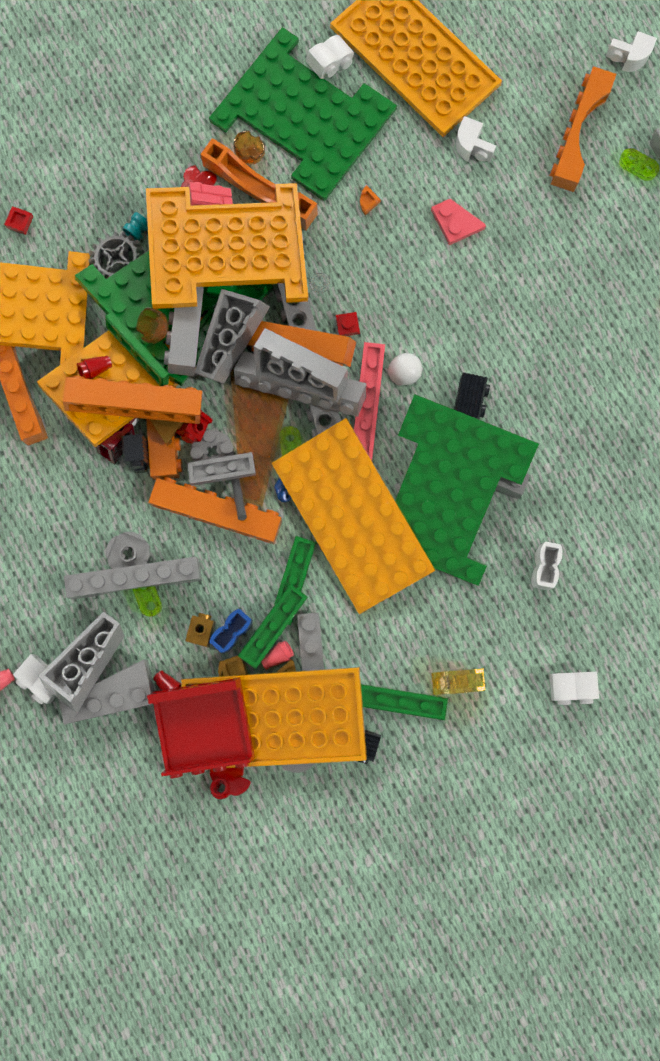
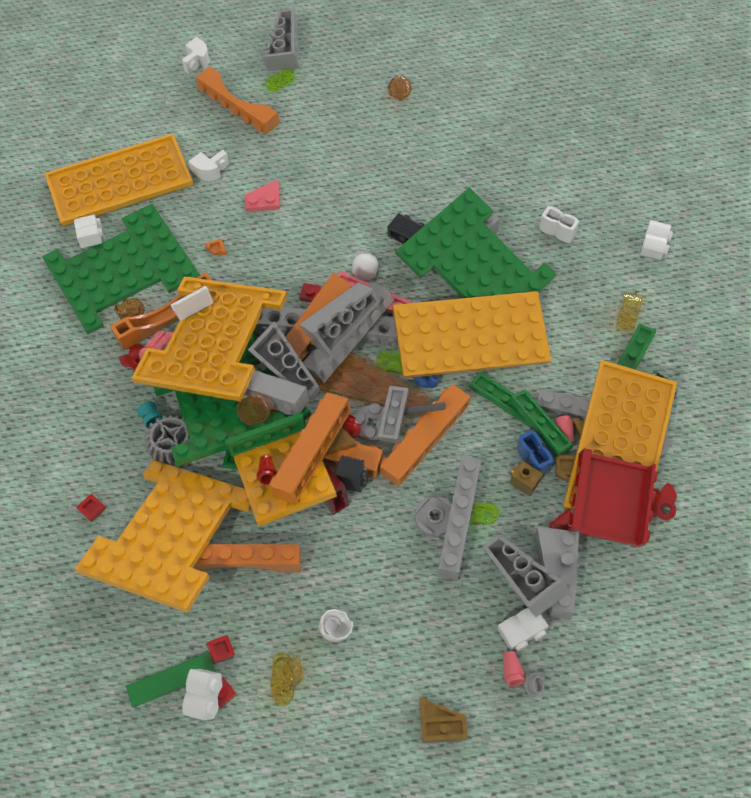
camera: 65 degrees left, 20 degrees down
(257, 206) = (192, 303): none -> white panel

